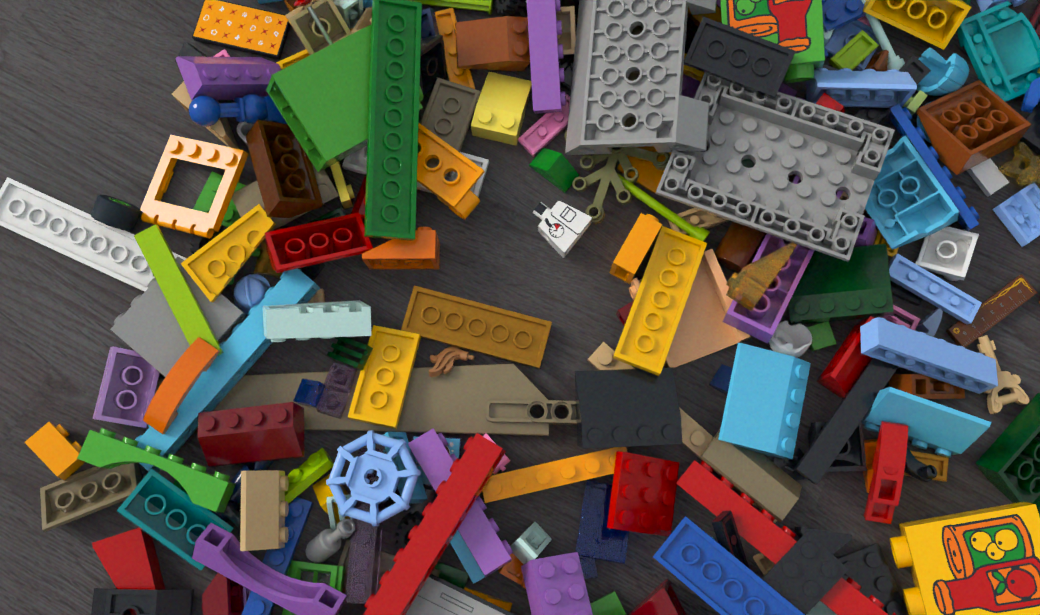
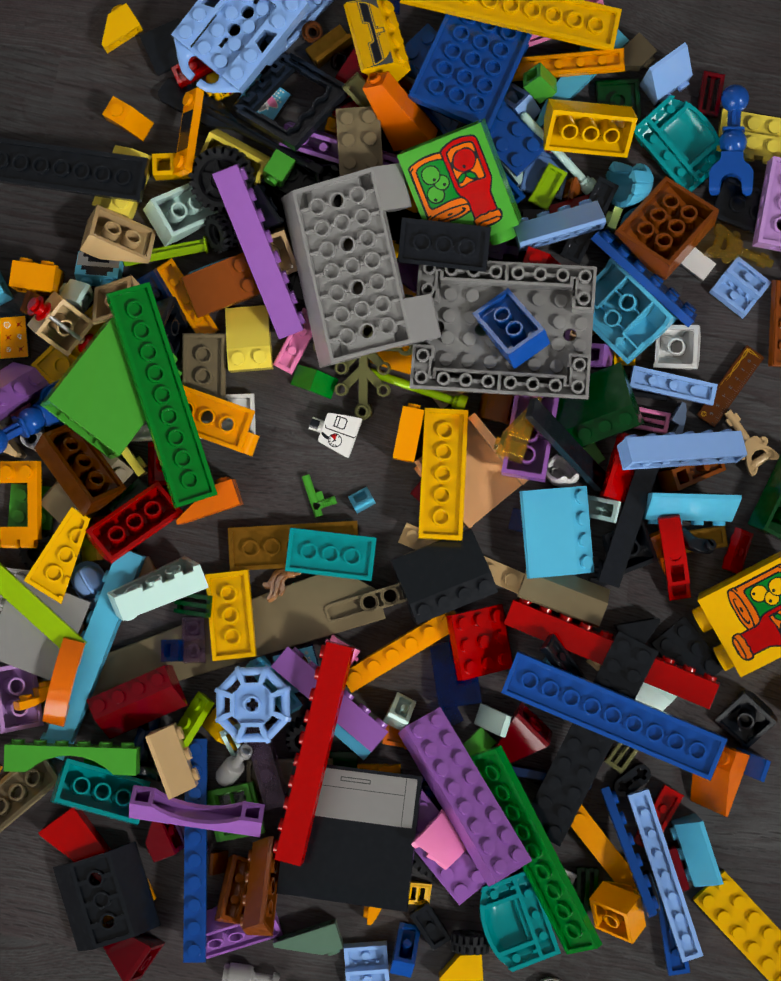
camera: 20 degrees left, 10 degrees up
(137, 393) = (27, 701): none -> light orange slope
(513, 346) = (330, 554): none -> teal plate
(517, 286) = (316, 497): none -> bright green hose
(563, 304) = (361, 500): none -> medium azure slope
(631, 587) = (492, 720): none -> light aqua tile
(785, 165) = (511, 328): none -> blue slope
(804, 305) = (565, 444): none -> black tile
(822, 396) = (603, 509): none -> light aqua slope
(956, 490) = (737, 550): none -> red plate

